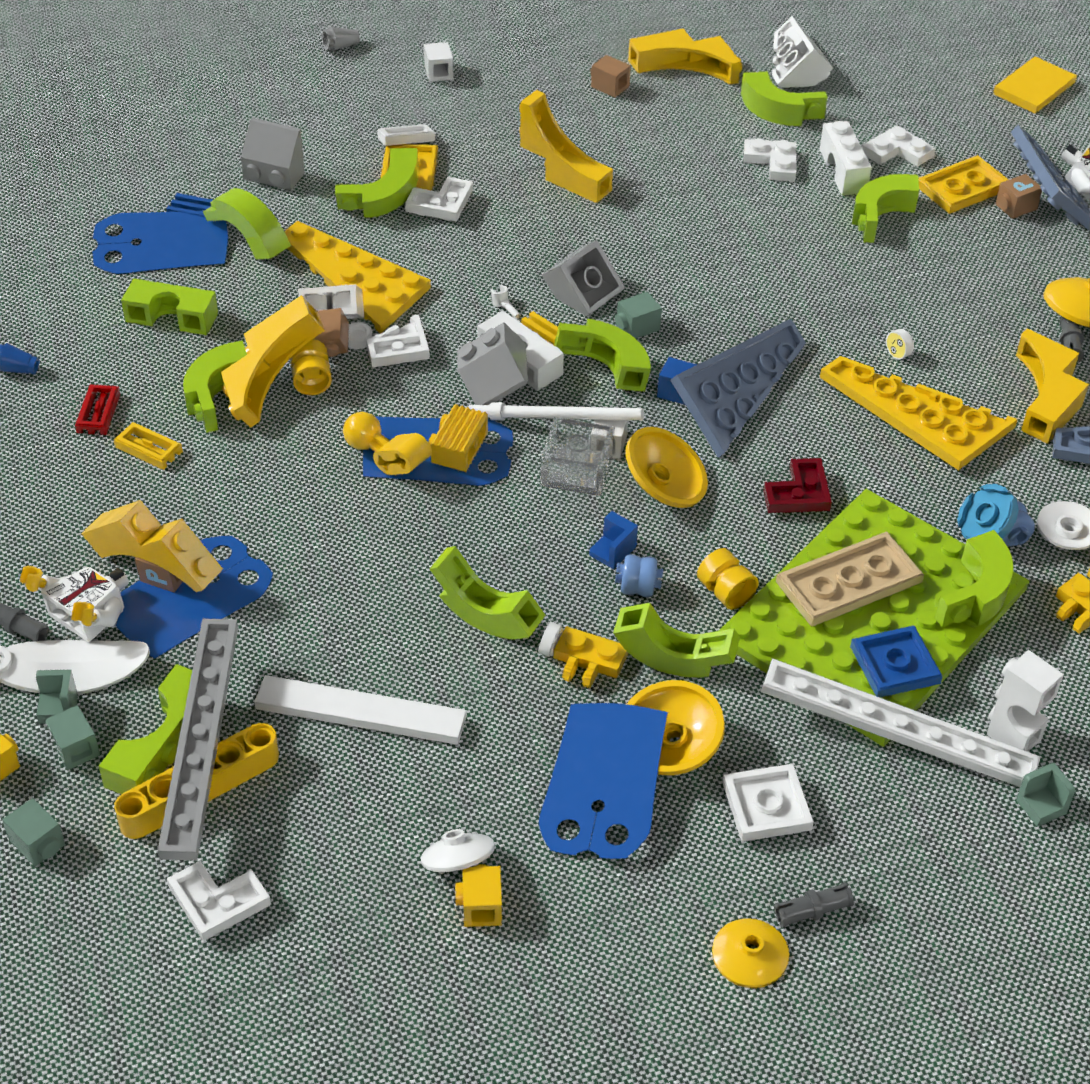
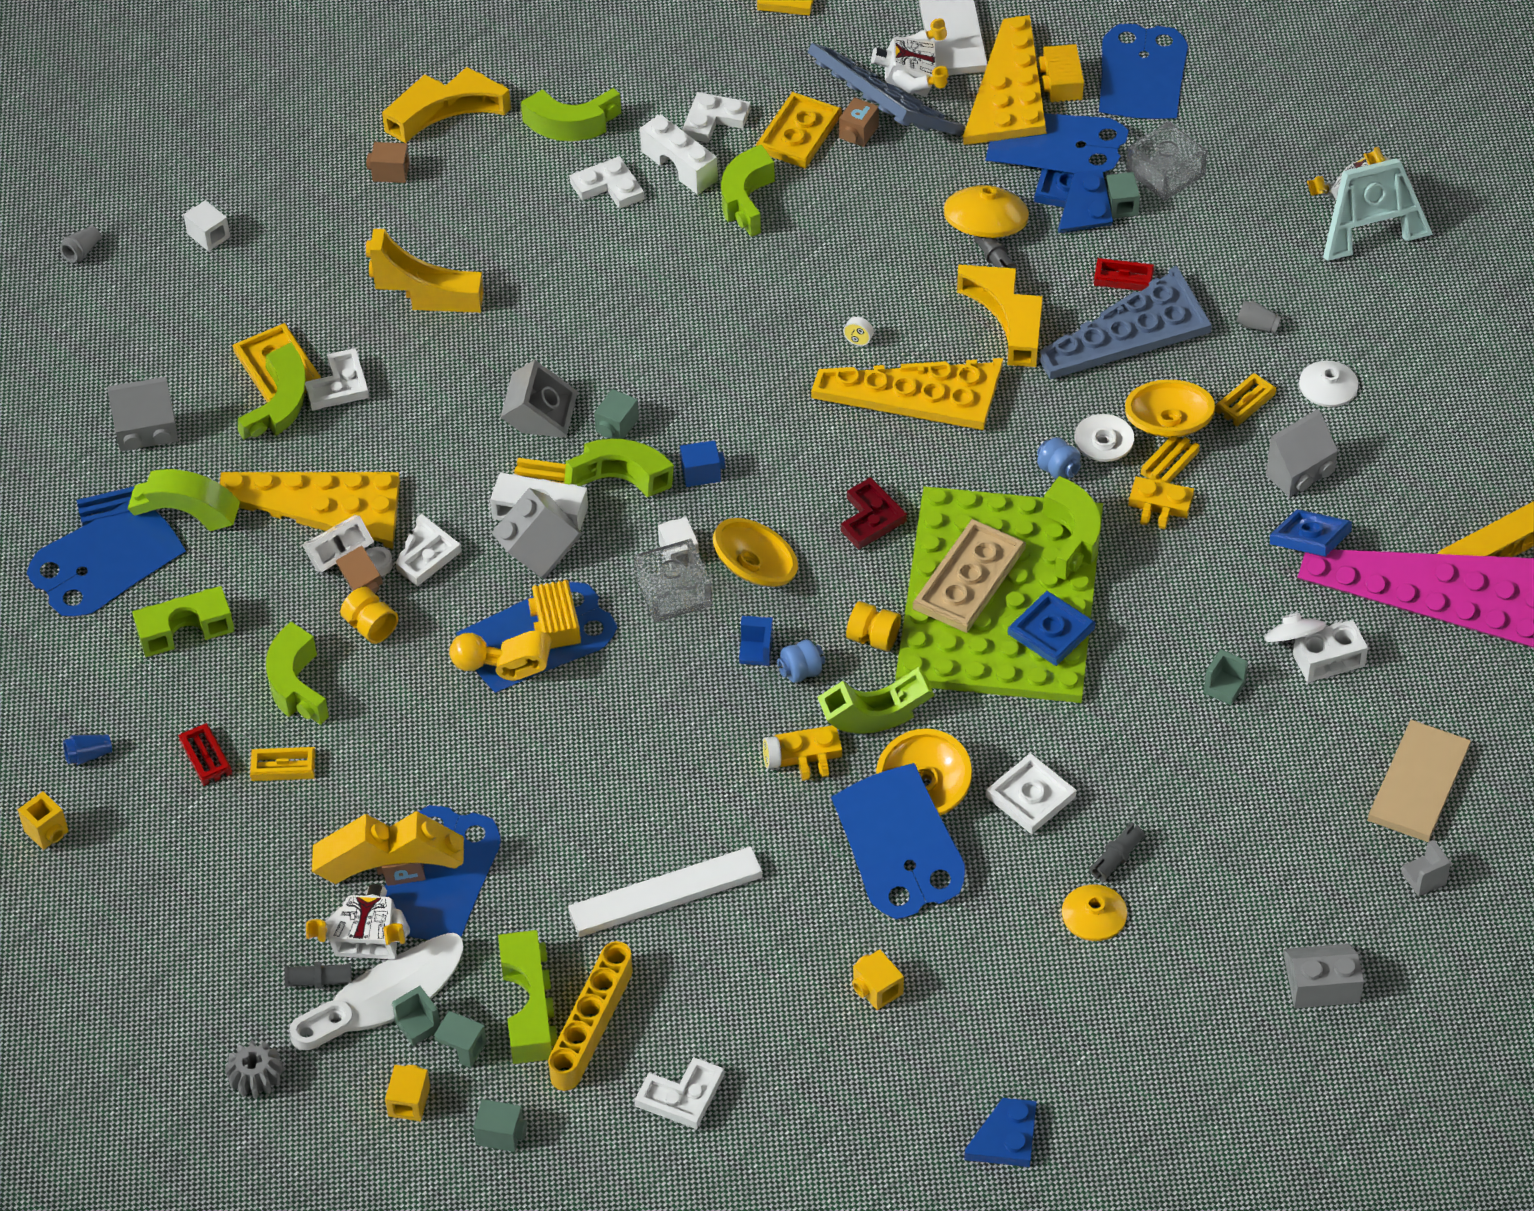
camera: 30 degrees left, 5 degrees up
(198, 741) = (576, 979): light grey plate -> none
(268, 350) = (328, 617): yellow arch -> none
(406, 134) = (245, 326): white tile -> none
(457, 851) = (835, 957): white dish -> none
(480, 605) = (700, 753): lime arch -> none
(500, 411) = (568, 571): white bar -> none
(501, 299) = (476, 460): white hand -> none
(734, 383) = (749, 443): sand blue wing -> none
(798, 58) = (551, 55): white wedge -> none
(899, 723) = (1086, 678): white tile -> none
(988, 510) = (1038, 461): dark azure tile -> none
(1025, 691) = (1171, 613): white arch -> none

